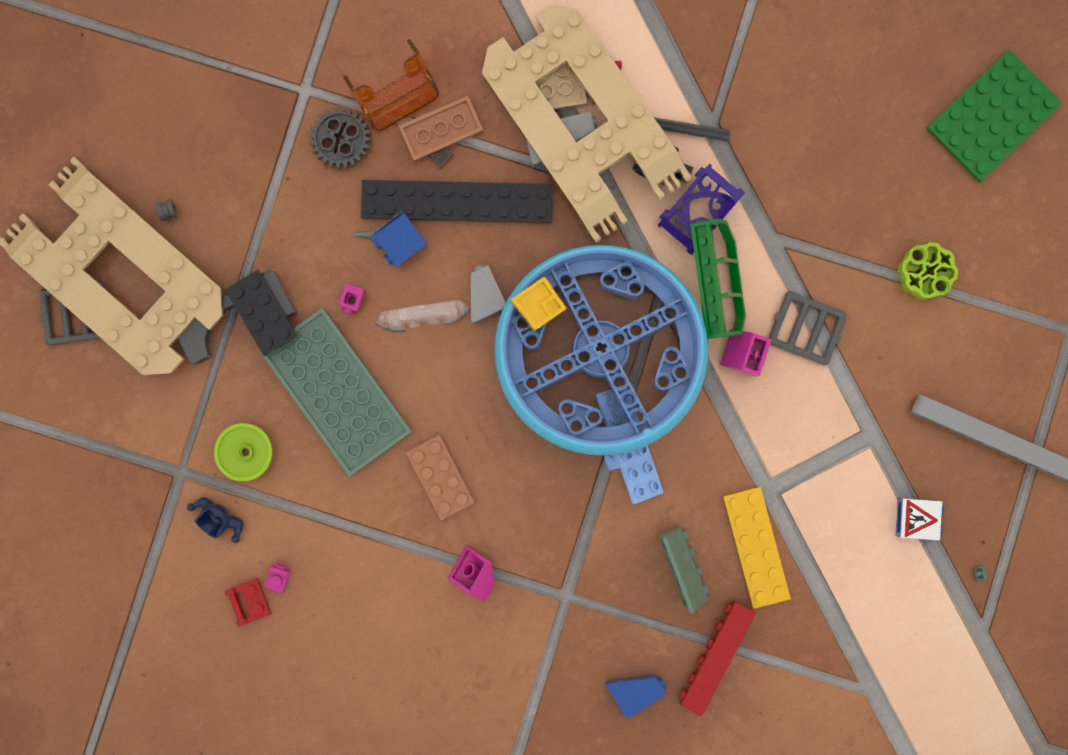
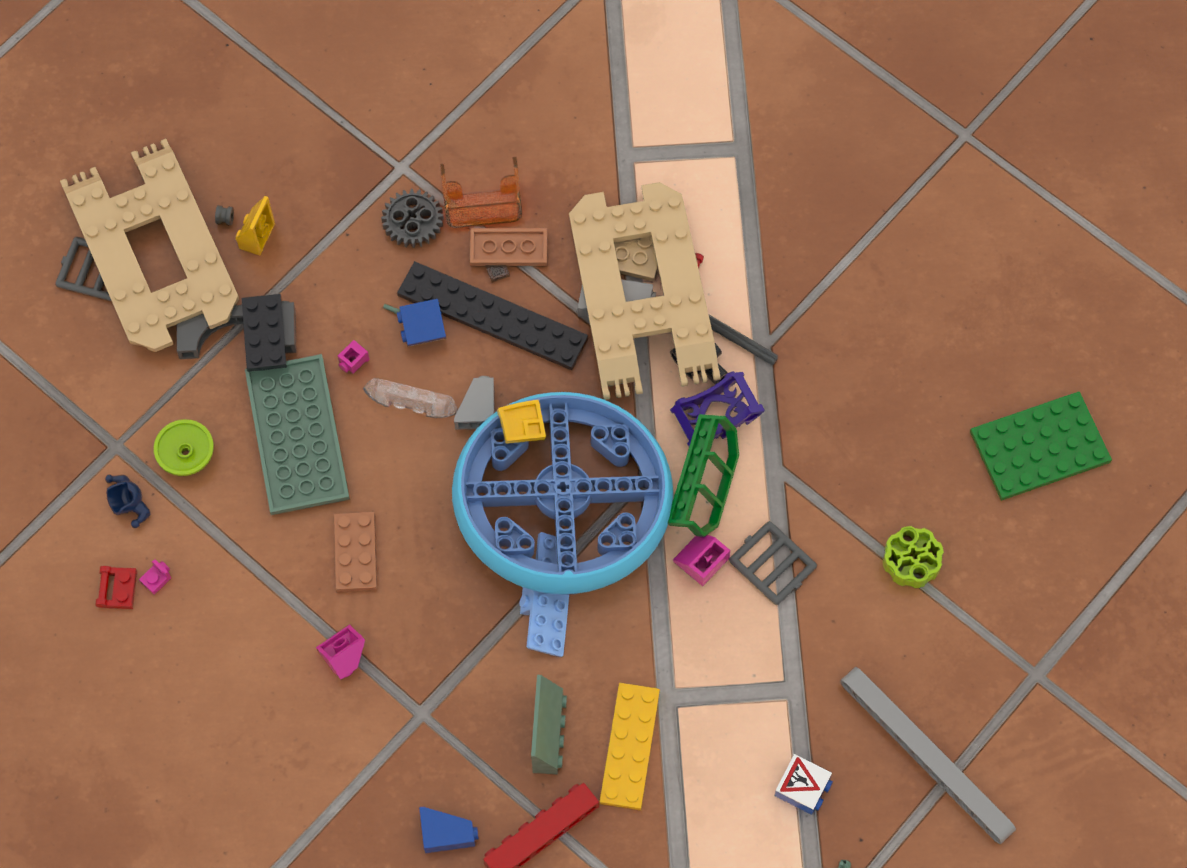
camera: 20 degrees right, 20 degrees down
(203, 212) = (256, 227): none -> yellow slope

